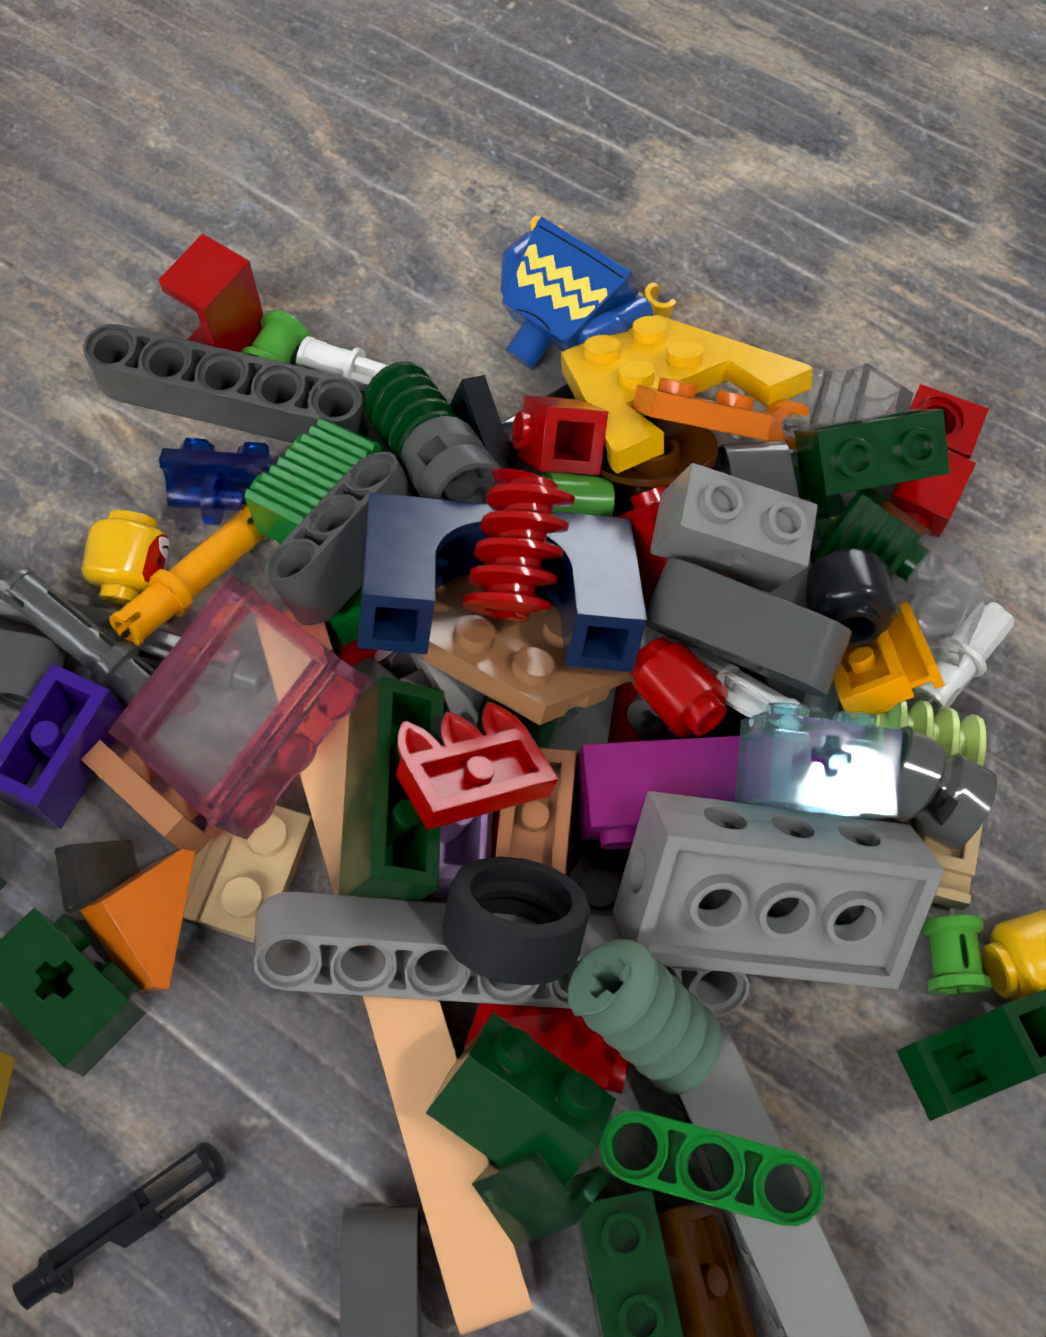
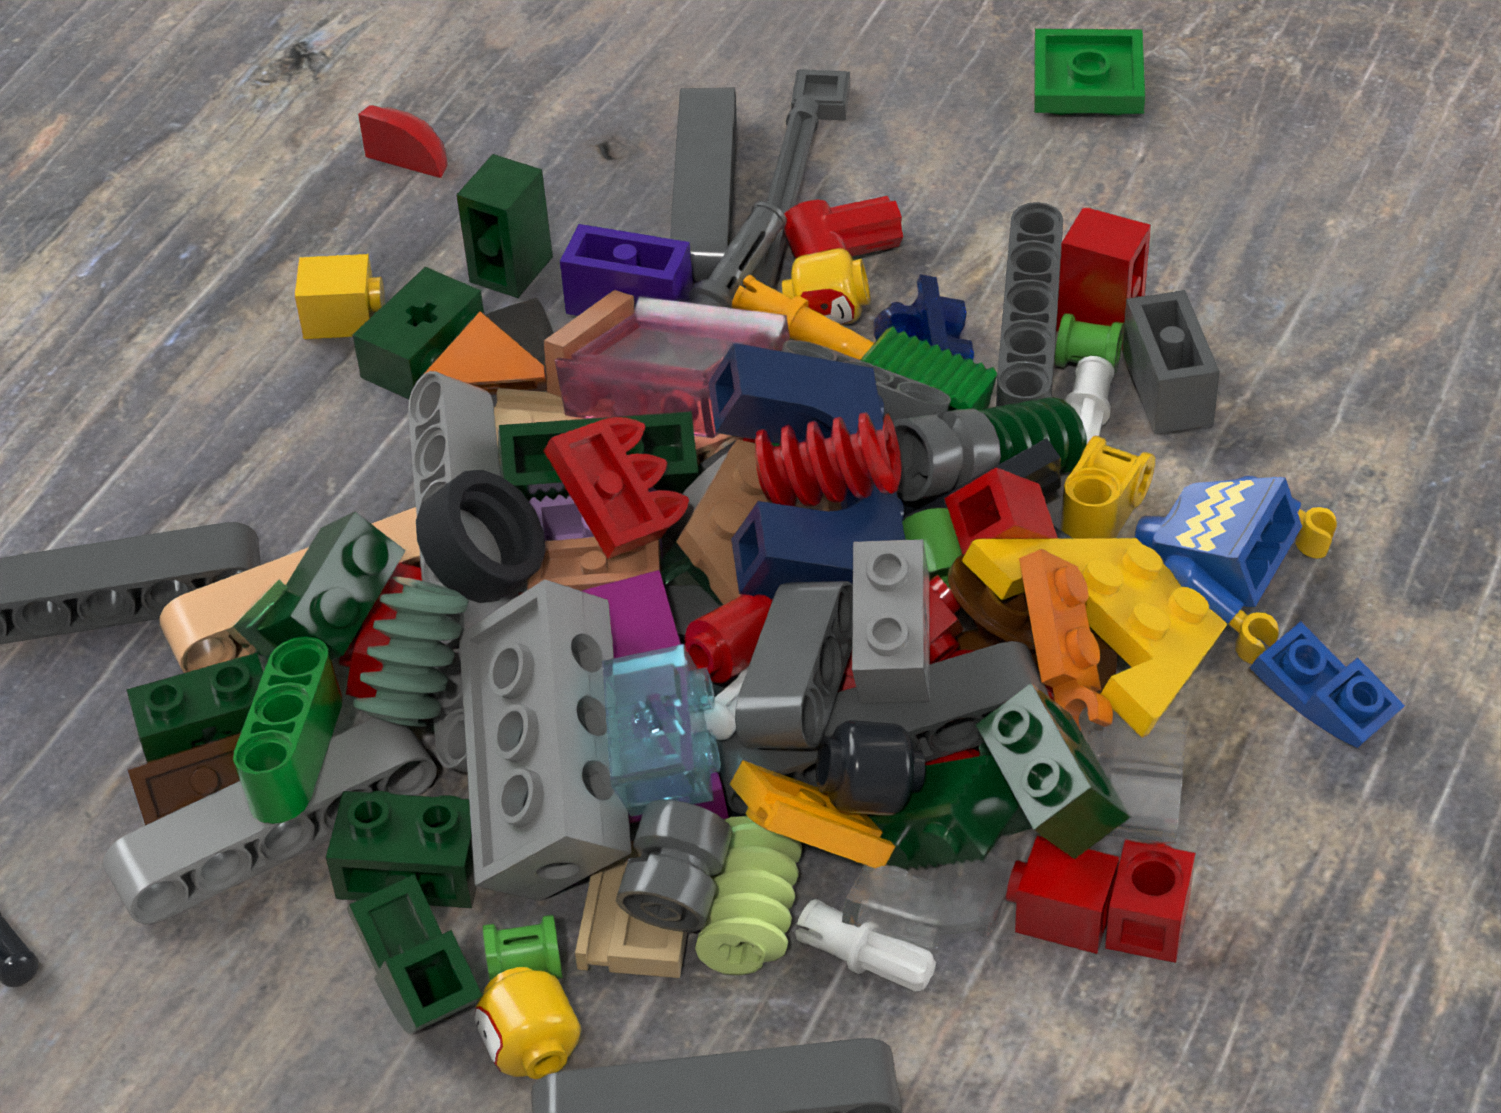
camera: 85 degrees right, 20 degrees down
(43, 526) = (854, 226): none -> red piece
(119, 1224) = (244, 415): black piece -> none
(334, 282) = (1170, 361): none -> dark grey brick
(462, 356) = (1104, 490): none -> yellow piece
(719, 271) = (1335, 697): none -> blue slope
(823, 1059) = (396, 836): none -> dark green brick

